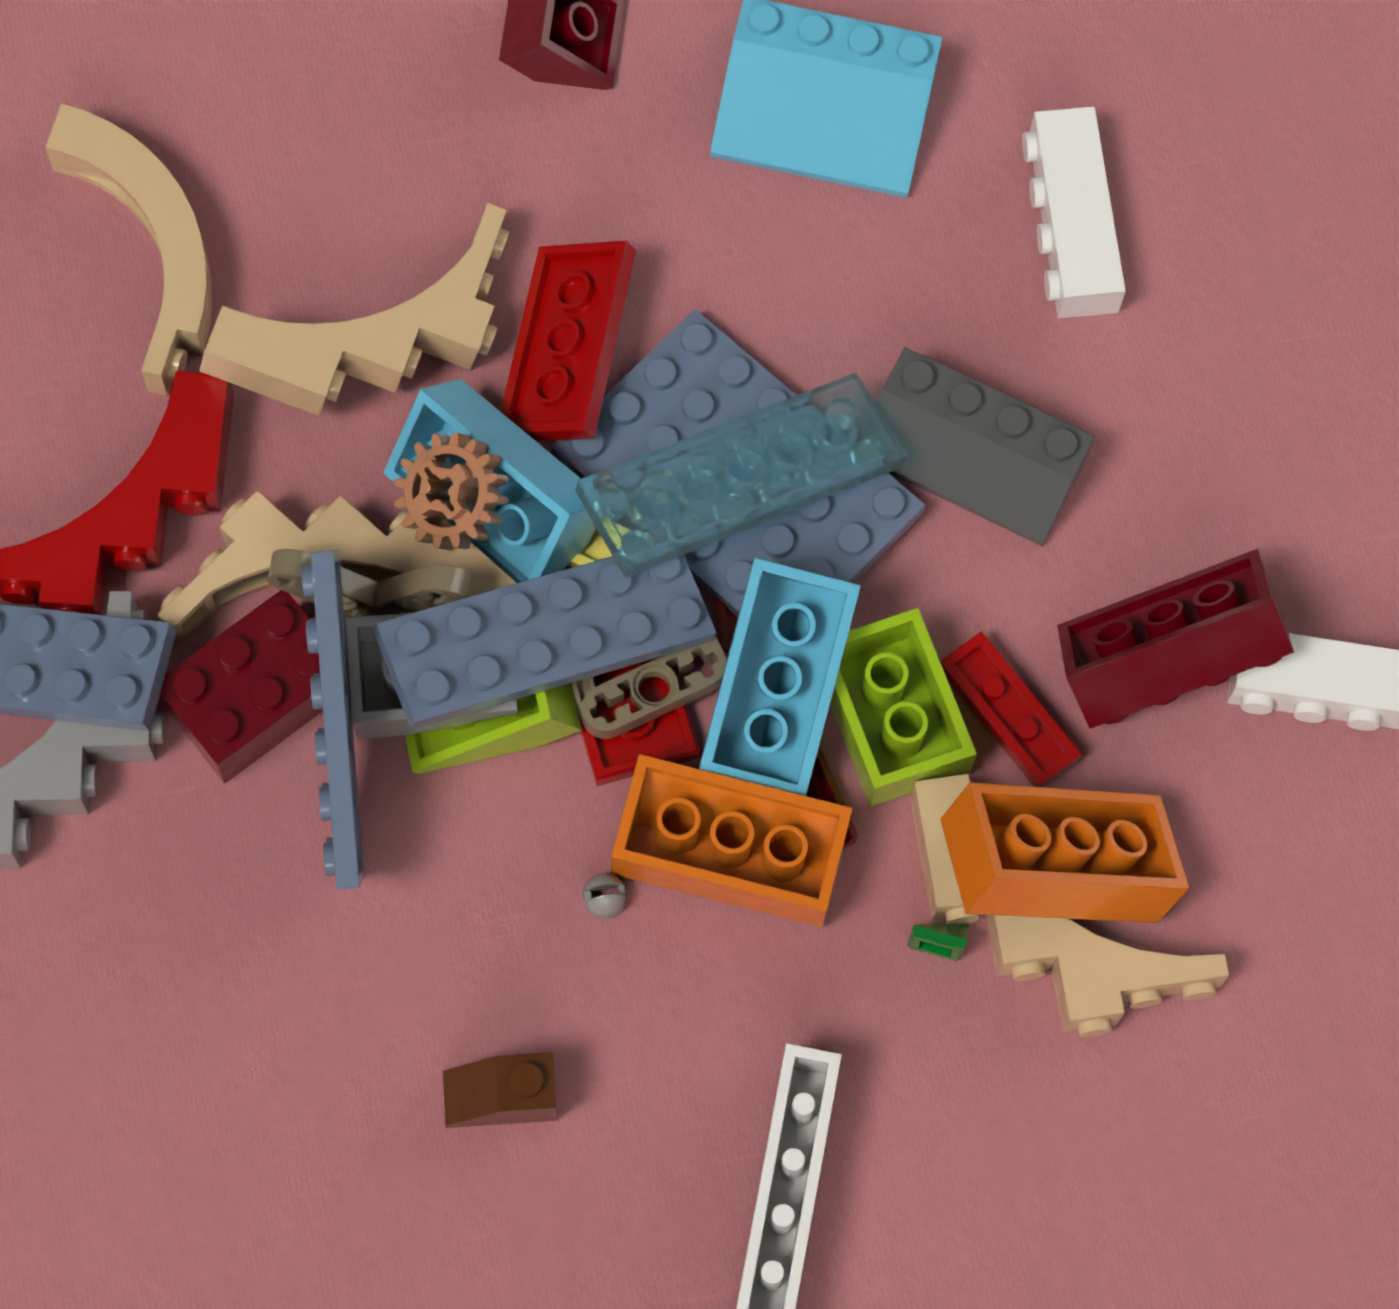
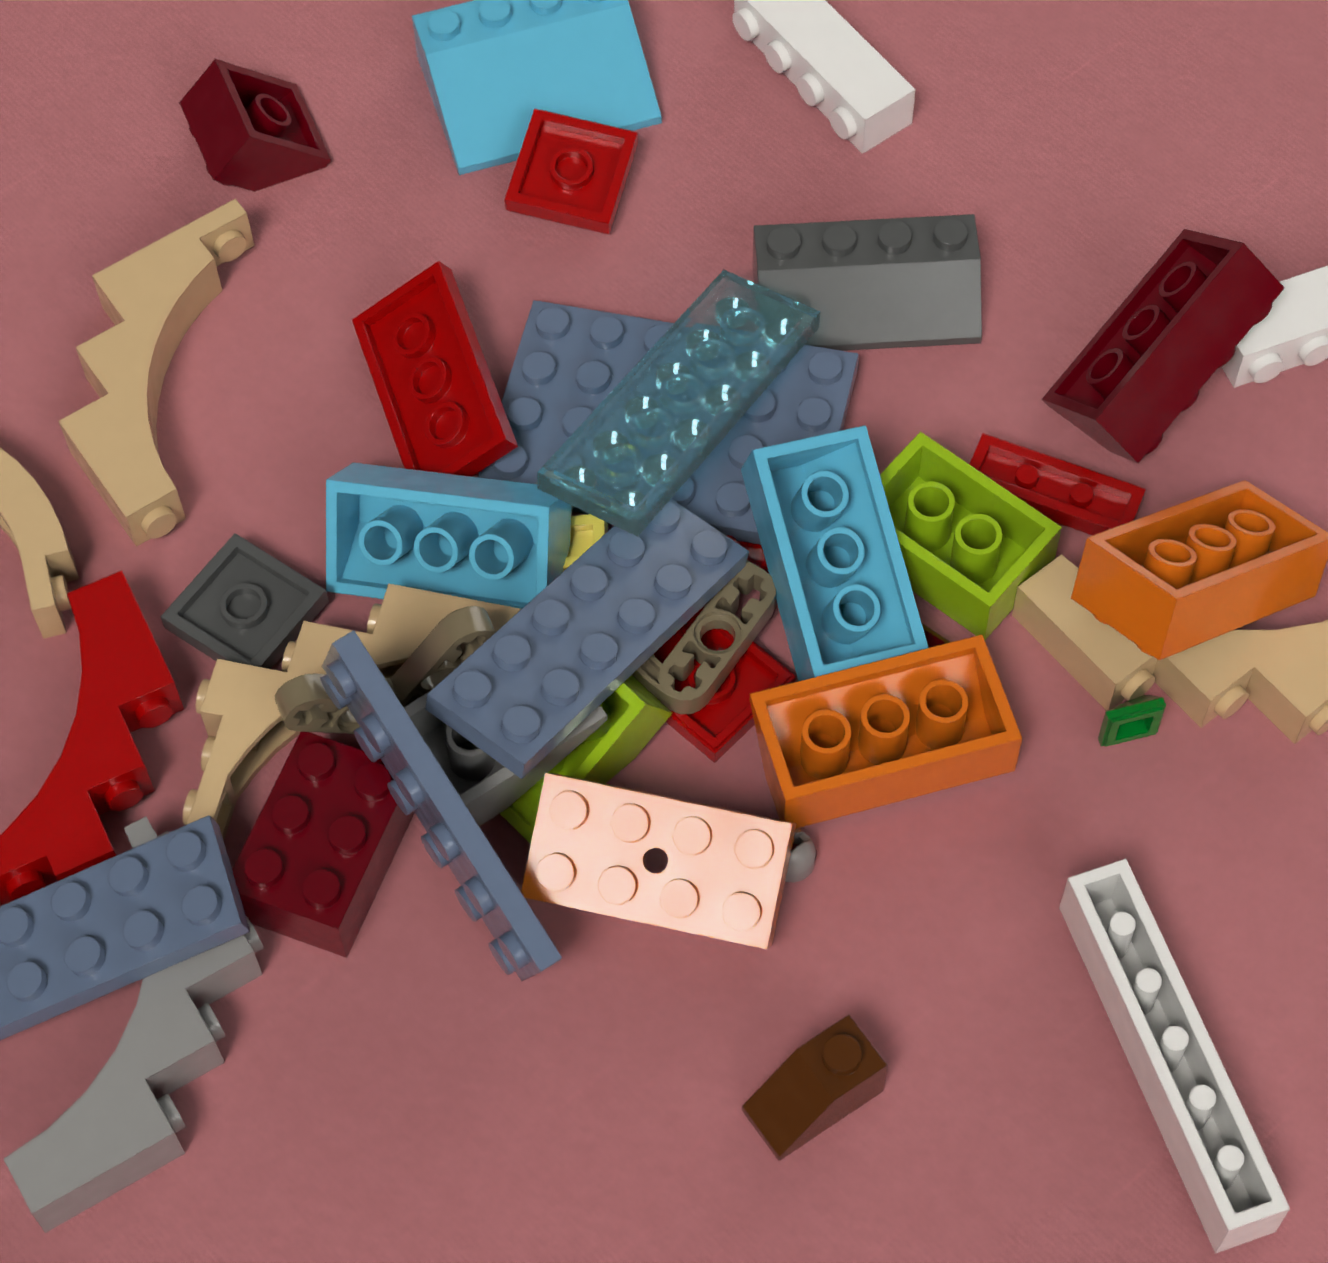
camera: 25 degrees left, 10 degrees down
(309, 361) = (201, 514): tan arch -> none
(309, 457) = (244, 606): none -> dark grey plate
(390, 146) = (152, 304): none -> tan arch
(472, 492) = (403, 571): nougat gear -> none
(533, 878) = (720, 871): none -> brick
(797, 208) = (571, 171): none -> red plate

